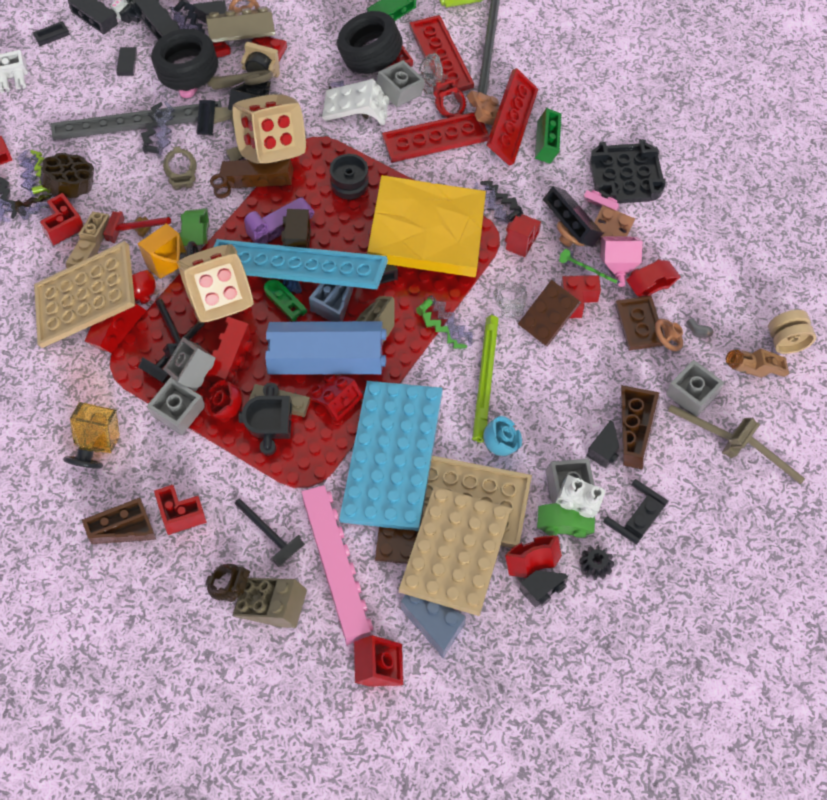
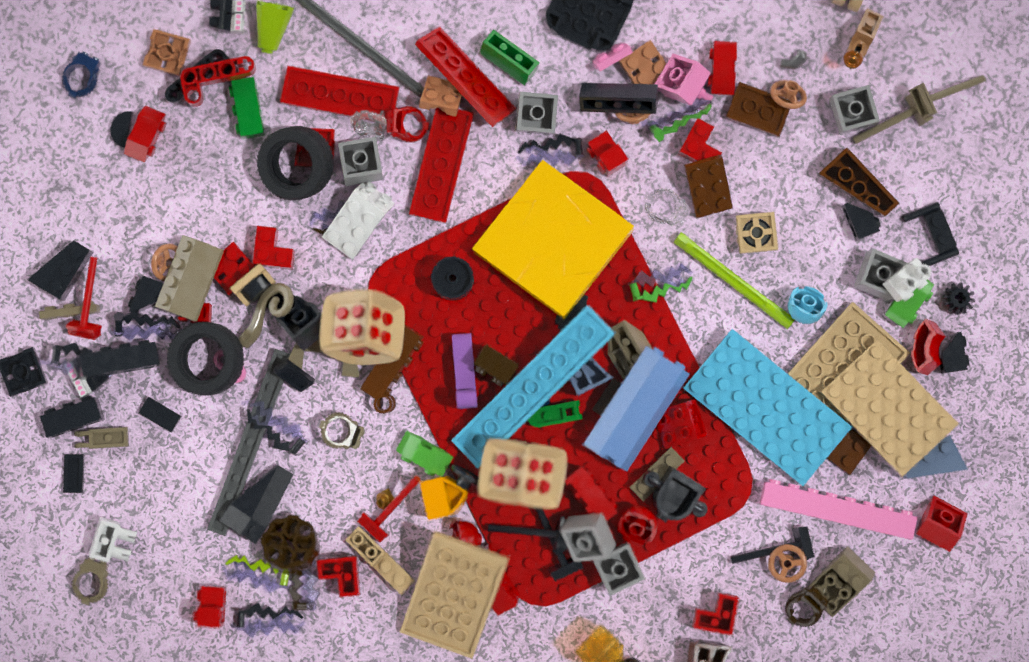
camera: 60 degrees left, 25 degrees up
(88, 37) = (104, 438): none -> dark tan hinge
(90, 143) = (254, 509): none -> black wedge
(265, 551) = (783, 557): none -> nougat piece
(294, 64) = (268, 253): none -> red brick
(519, 172) = (536, 113): none -> light grey brick
(537, 368) = (755, 234): none -> tan piece

